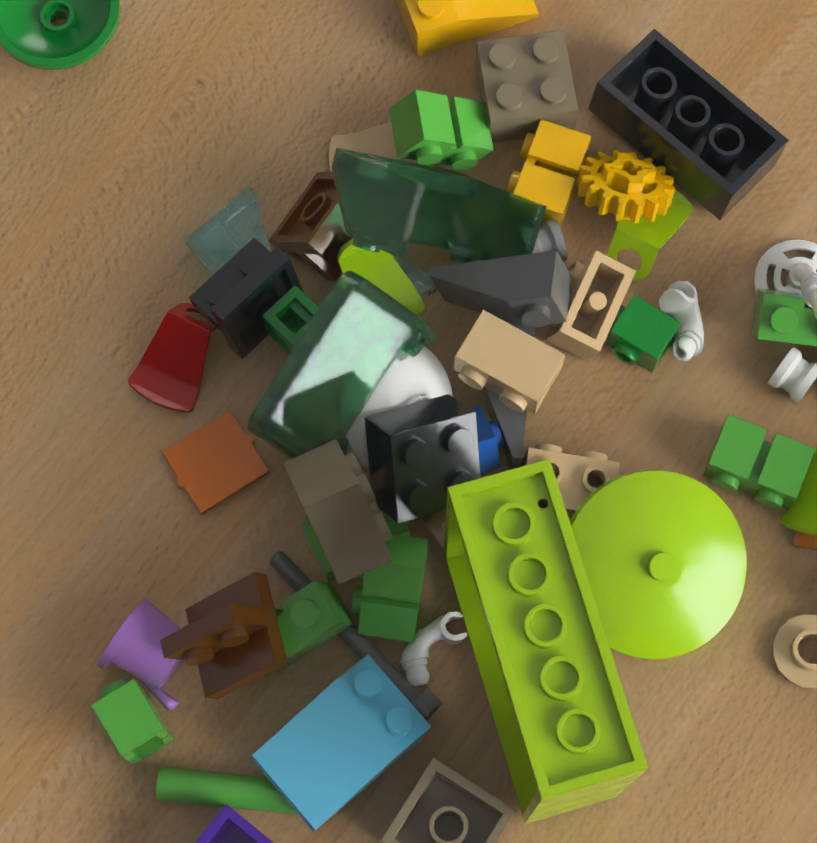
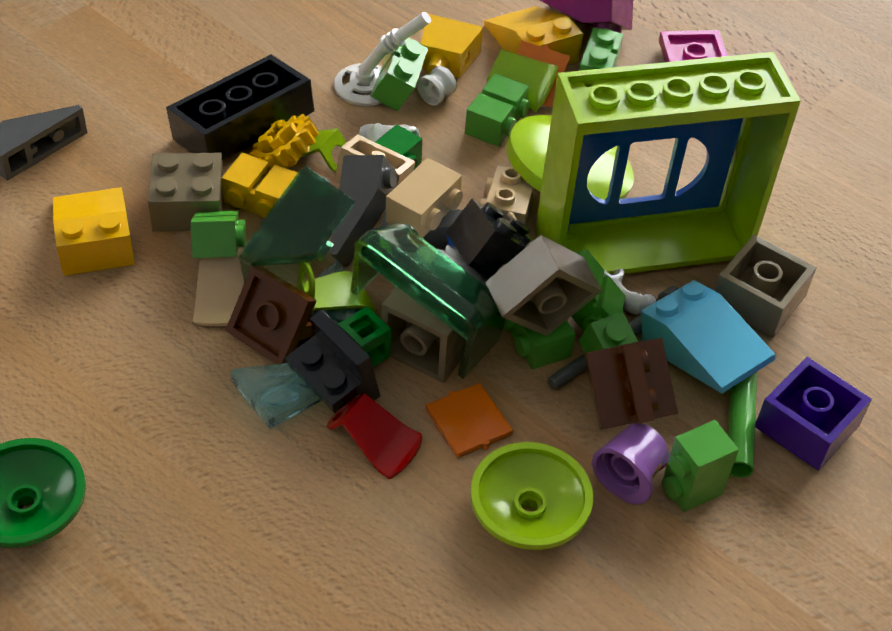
camera: 90 degrees left, 25 degrees down
(67, 504) = (533, 478): none -> lime dish

